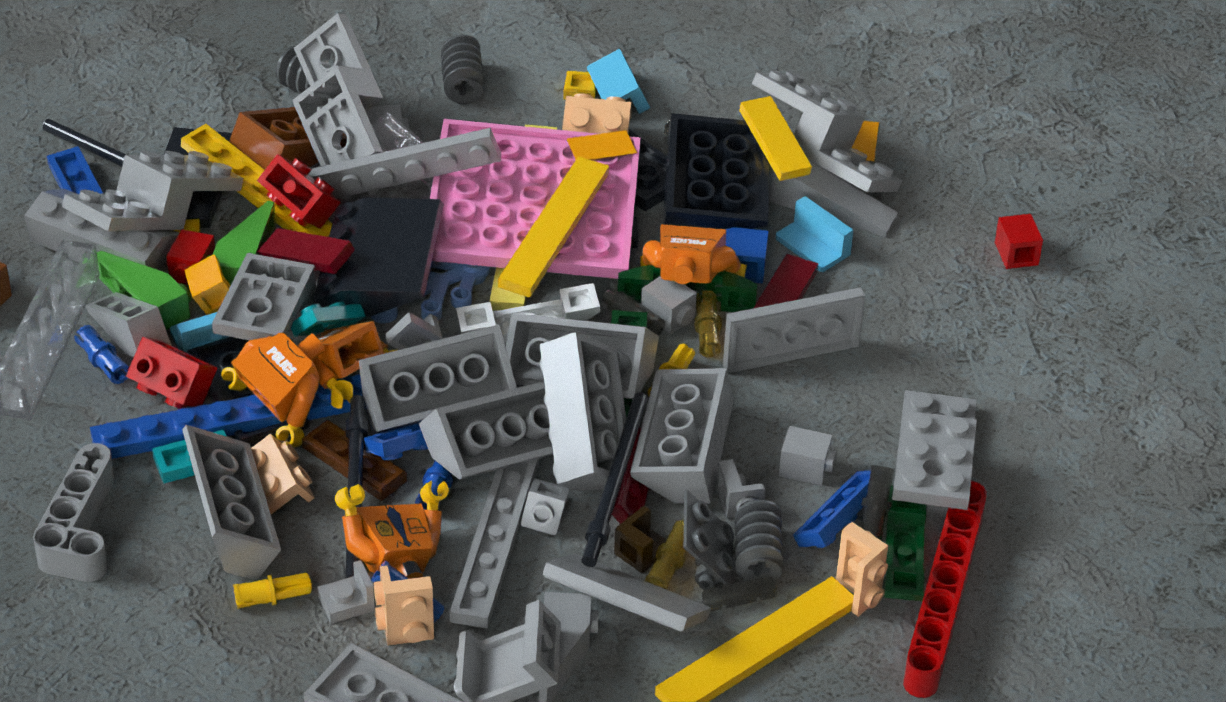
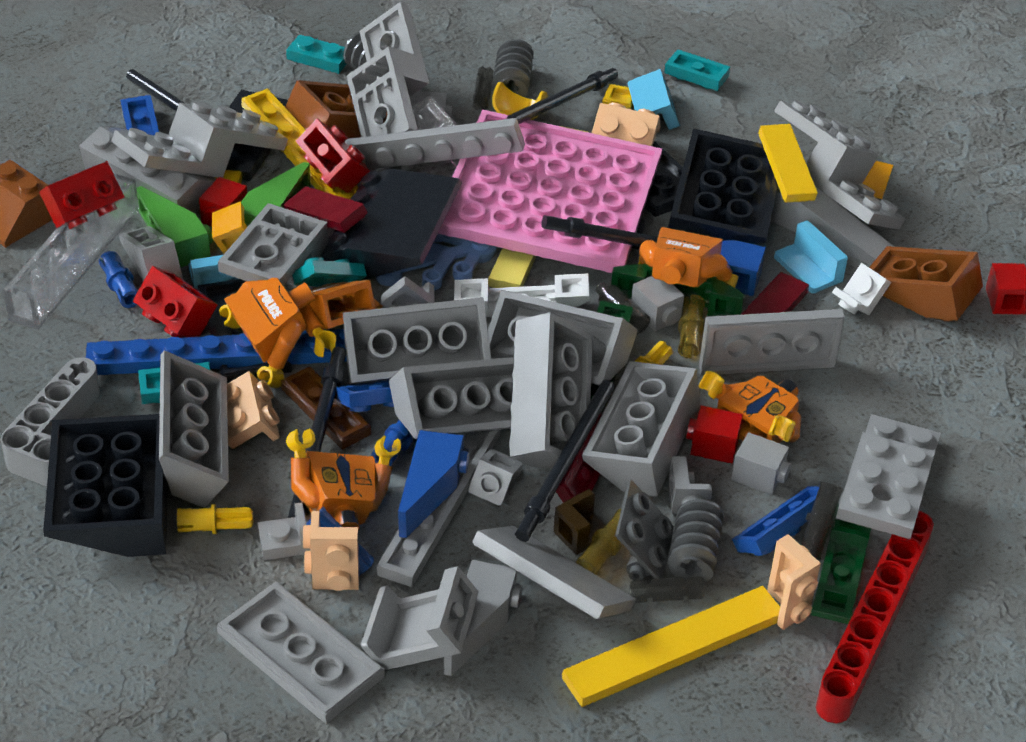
camera: 10 degrees right, 0 degrees up
(50, 271) = (82, 195): none -> red brick
(159, 568) = (107, 485): none -> black slope
(245, 75) = (317, 53): none -> teal plate
(433, 92) = (483, 88): none -> clear smoke axle
(475, 108) = (508, 102): none -> yellow helmet
(486, 514) = (431, 477): none -> blue slope
(550, 71) = (593, 82): none -> black bar
(553, 227) = (575, 201): yellow tile -> none
(575, 237) = (577, 228): none -> black bar
(602, 145) = (624, 151): light orange sticker -> none
(656, 43) = (697, 70): none -> teal plate
(755, 432) = (715, 434): none -> red brick
(790, 399) = (766, 407): none -> orange torso
(873, 263) = (862, 290): none -> white bracket
(935, 243) = (930, 280): none -> dark orange slope

